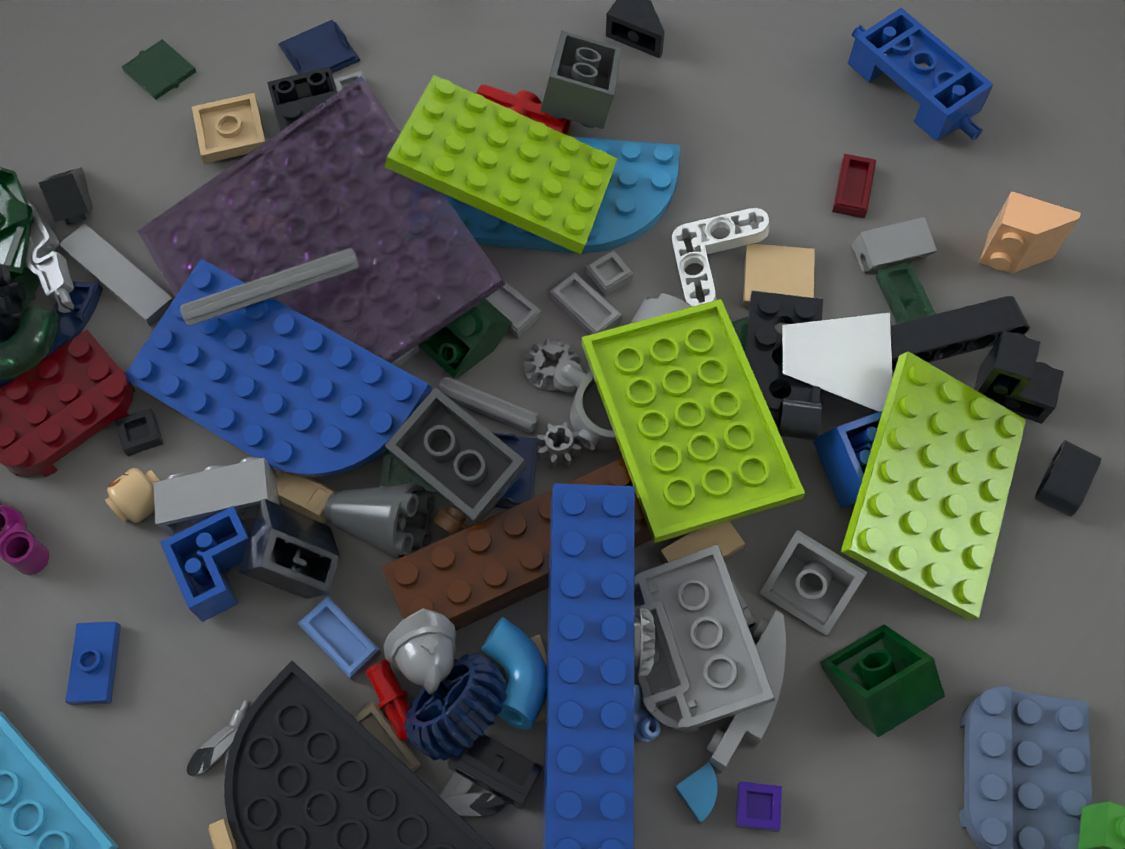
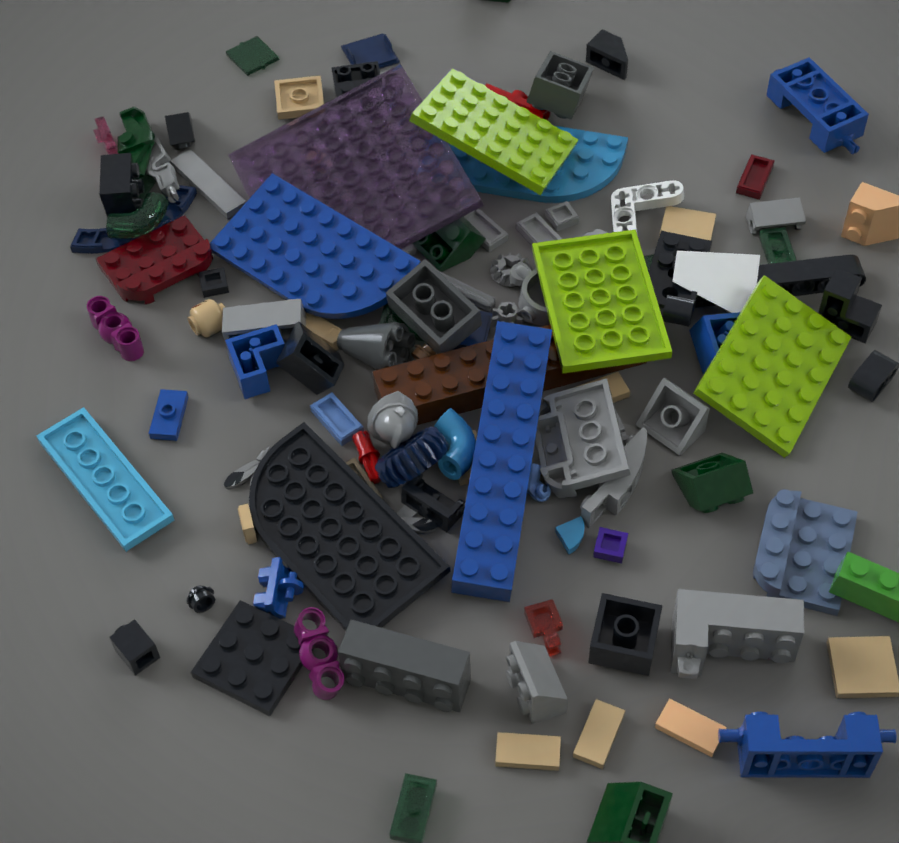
camera: 10 degrees right, 10 degrees down
(269, 286) = (319, 191): light grey axle -> none
(644, 641) = (544, 429): light grey gear -> none

